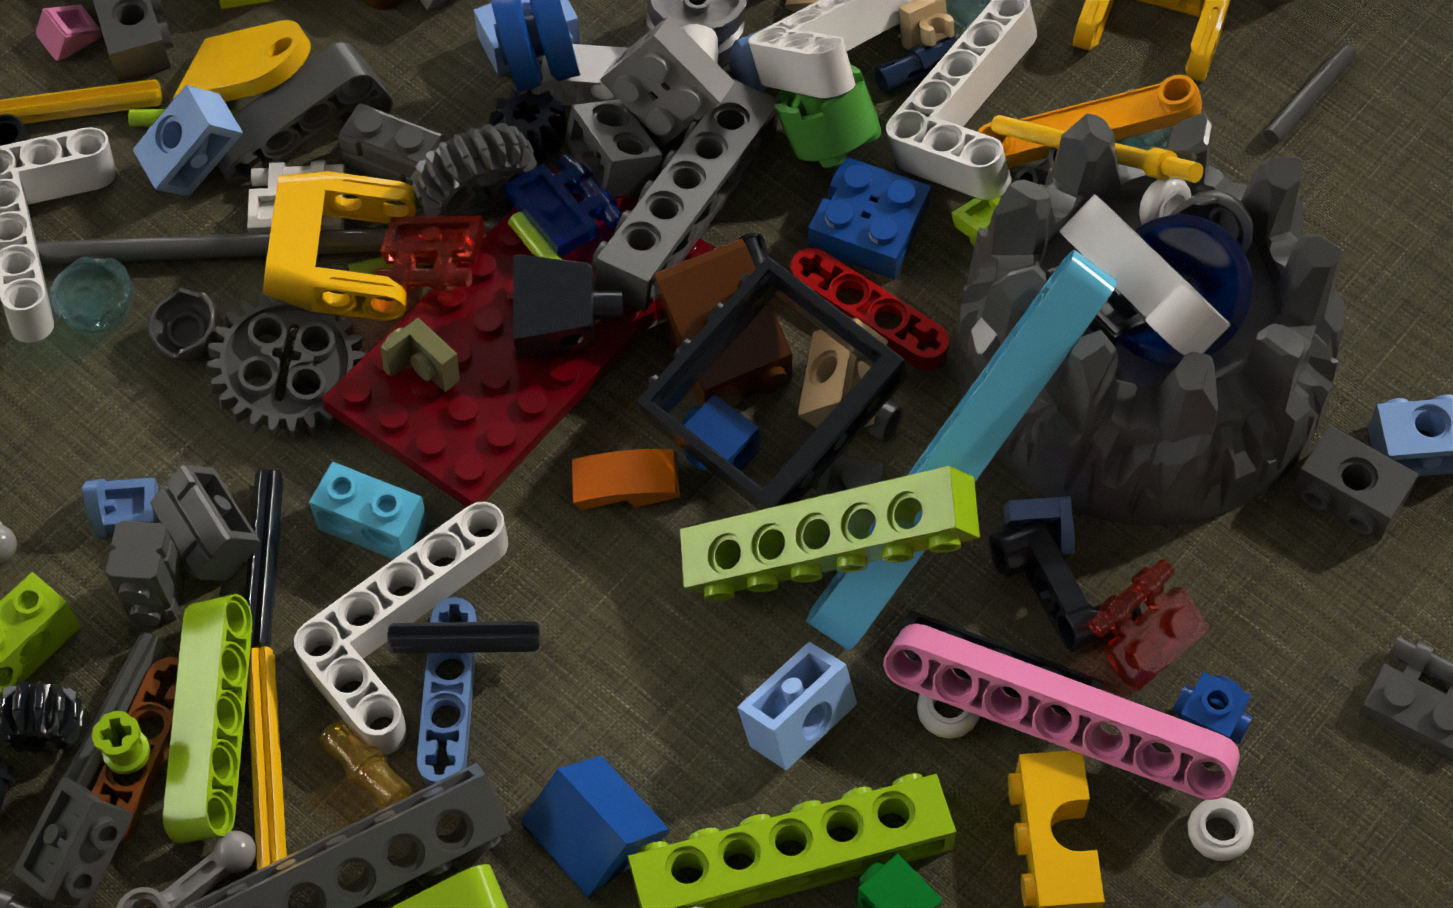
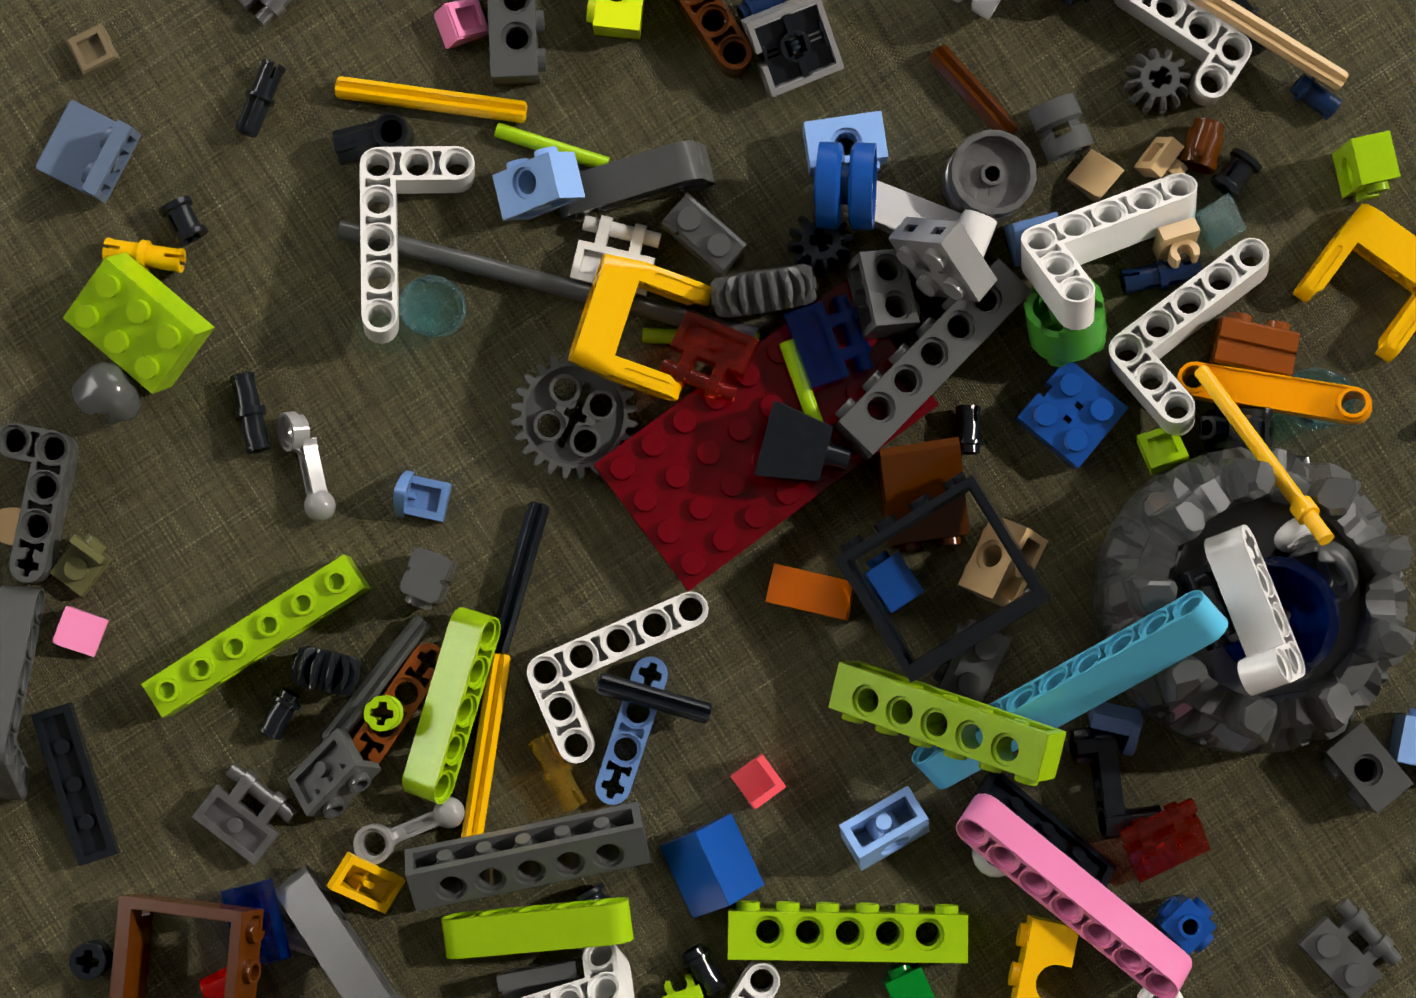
camera: 10 degrees right, 25 degrees up
(184, 325) = (501, 355): dark grey hair -> none
(205, 523) = (481, 542): dark grey brick -> none
(248, 60) = (595, 119): yellow tile -> none
(368, 511) = (607, 567): medium azure brick -> none
(424, 350) = (686, 465): olive bracket -> none
(625, 702) = (758, 781): none -> coral panel
(874, 302) = (1048, 492): red beam -> none
(1038, 91) = (1253, 345): none -> dark orange brick

